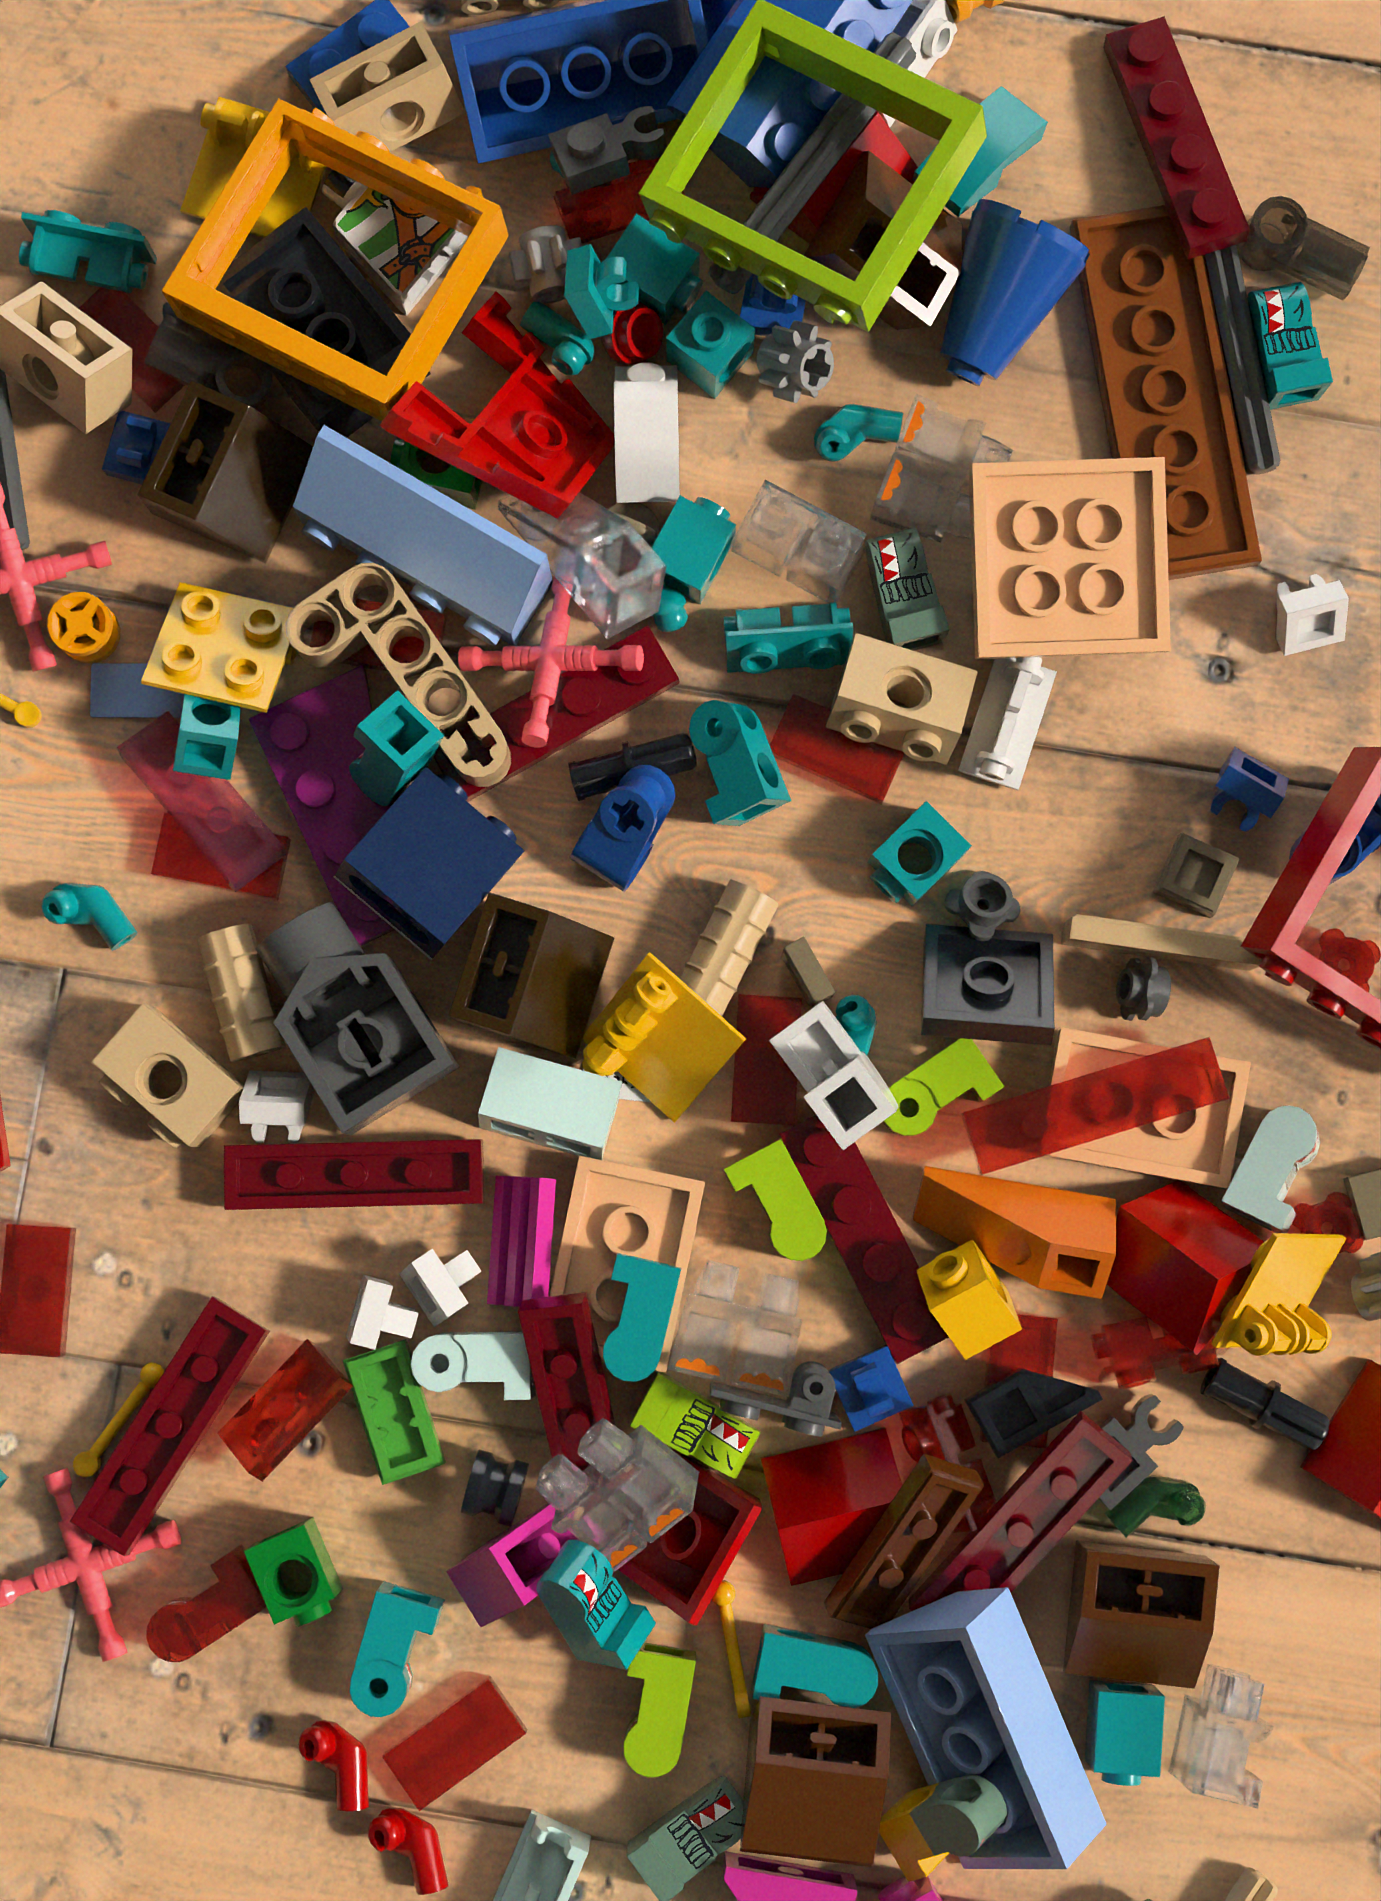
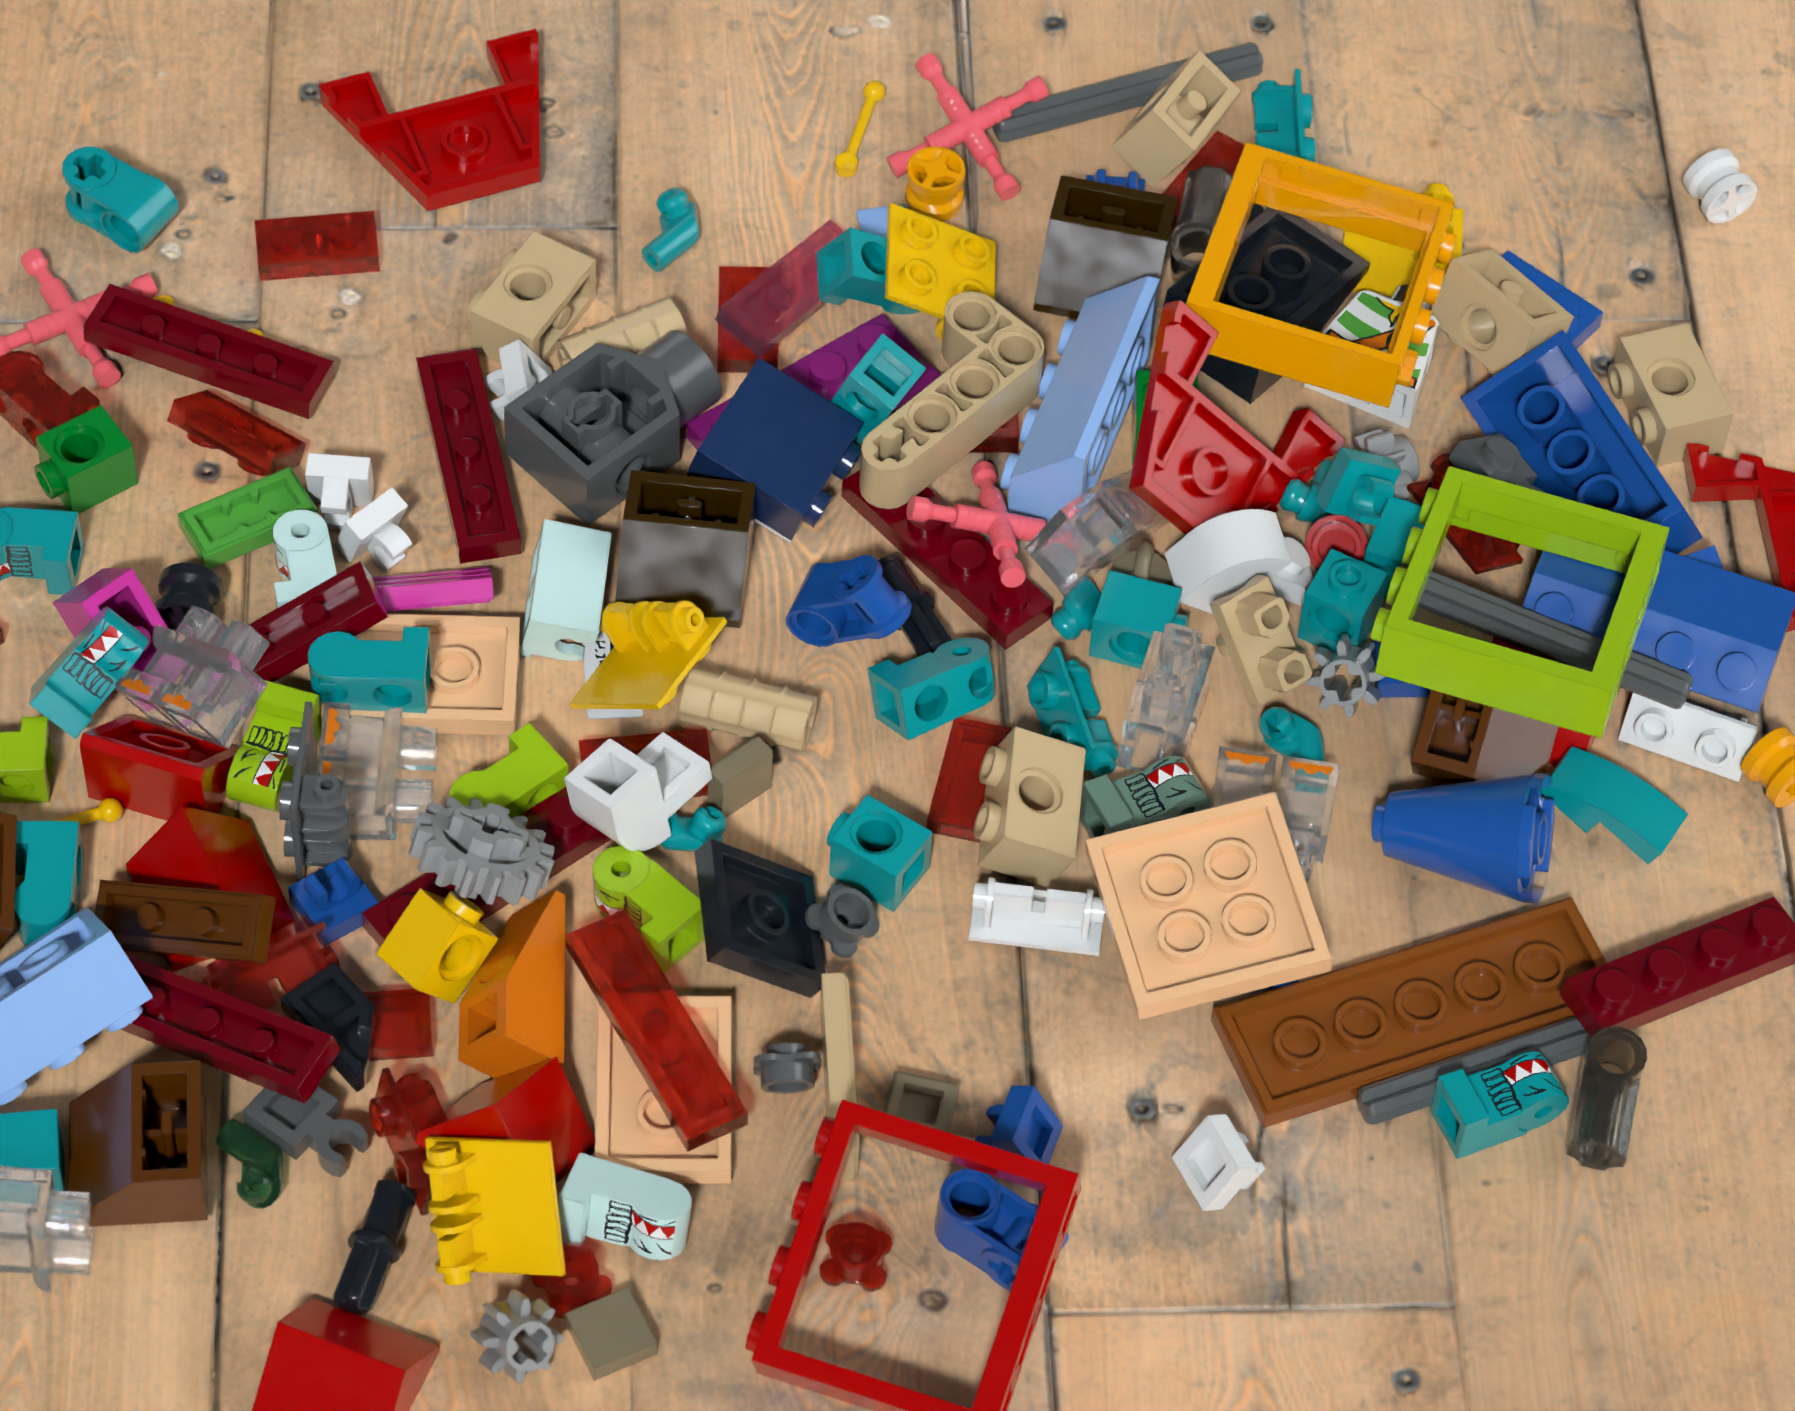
camera: 75 degrees right, 30 degrees down
(749, 434) = (1259, 641): none -> tan hips
(891, 1252) = (481, 851): none -> light grey gear

